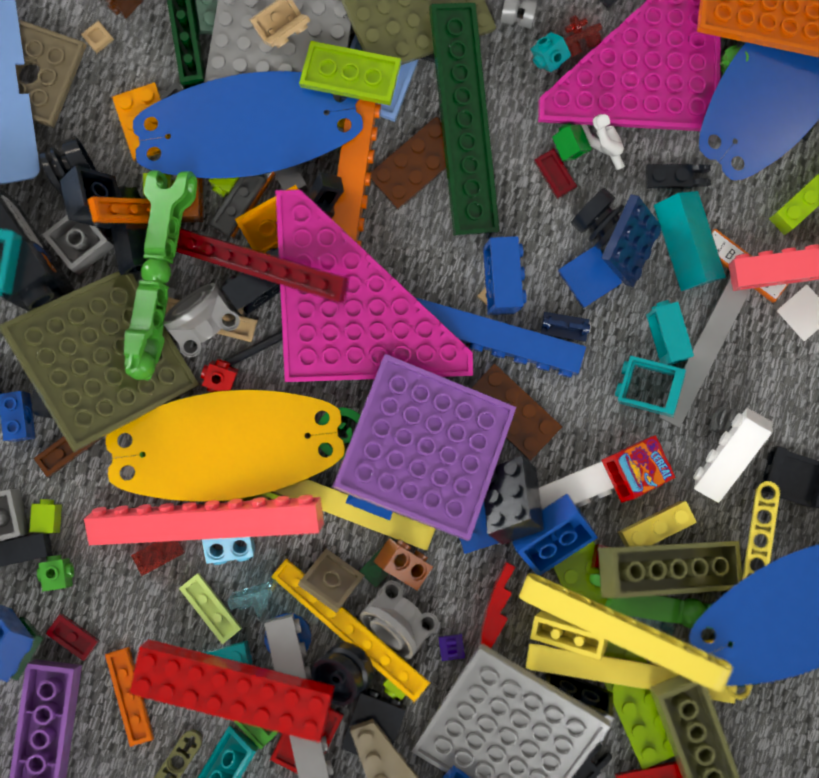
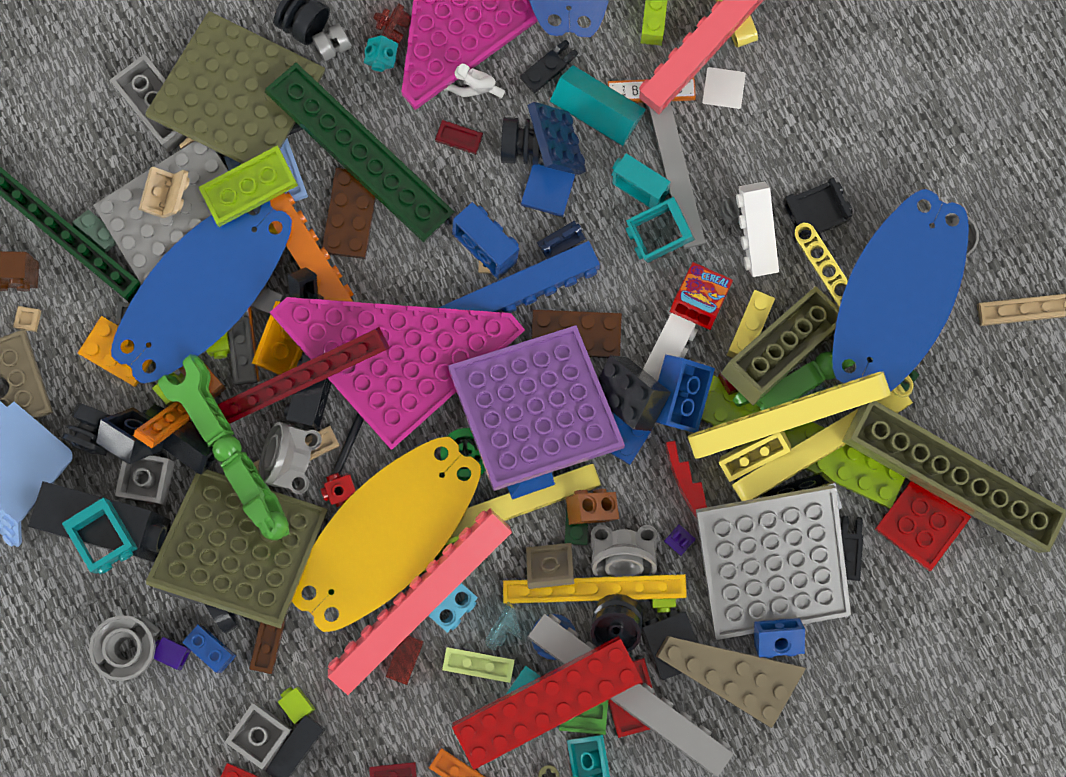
camera: 40 degrees left, 5 degrees down
(55, 573) = (348, 741): bright green brick -> none
(571, 142) = (451, 104): green brick -> none

